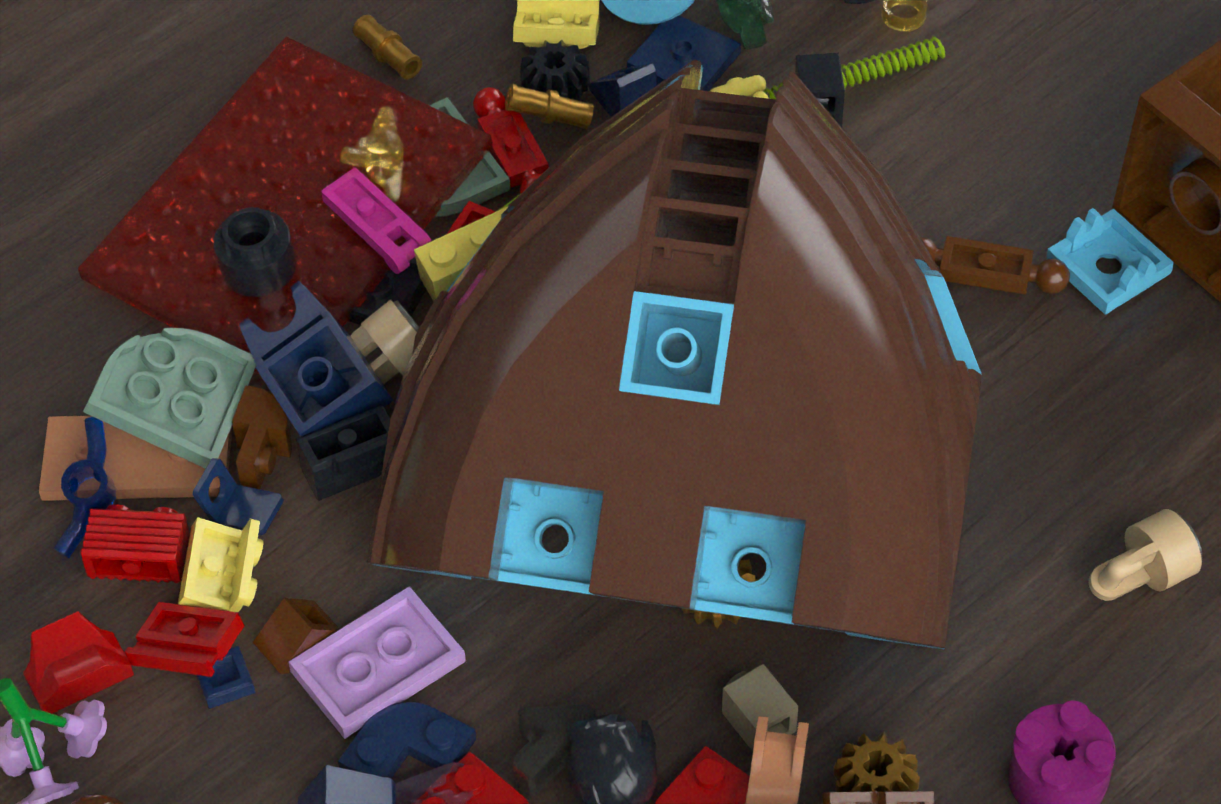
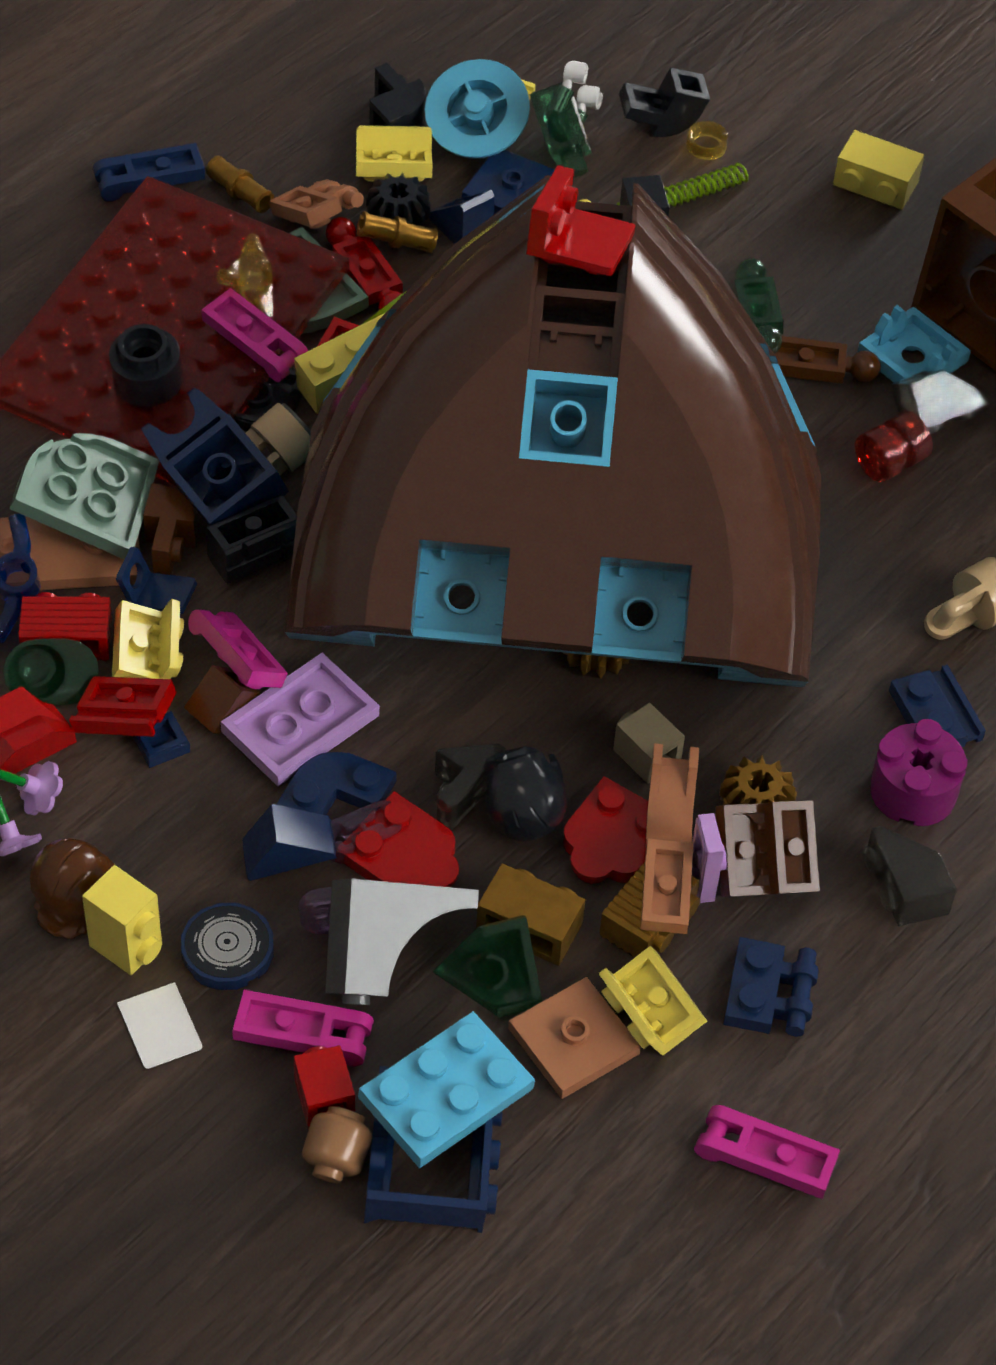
camera: 10 degrees left, 0 degrees up
(112, 593) = (51, 669): none -> clear green cap
(305, 24) = (127, 172): none -> dark blue plate
(317, 579) = (238, 648): none -> dark pink plate
(464, 72) = (316, 203): none -> nougat plate
(698, 139) = (572, 235): none -> red bracket
(939, 204) = (760, 300): none -> clear green plate
(1077, 368) = (893, 445): none -> clear red wheel
(1091, 48) = (878, 169): none -> light yellow brick
(1096, 677) = (937, 698): none -> dark blue plate
(1125, 317) = (938, 398): none -> clear smoke slope

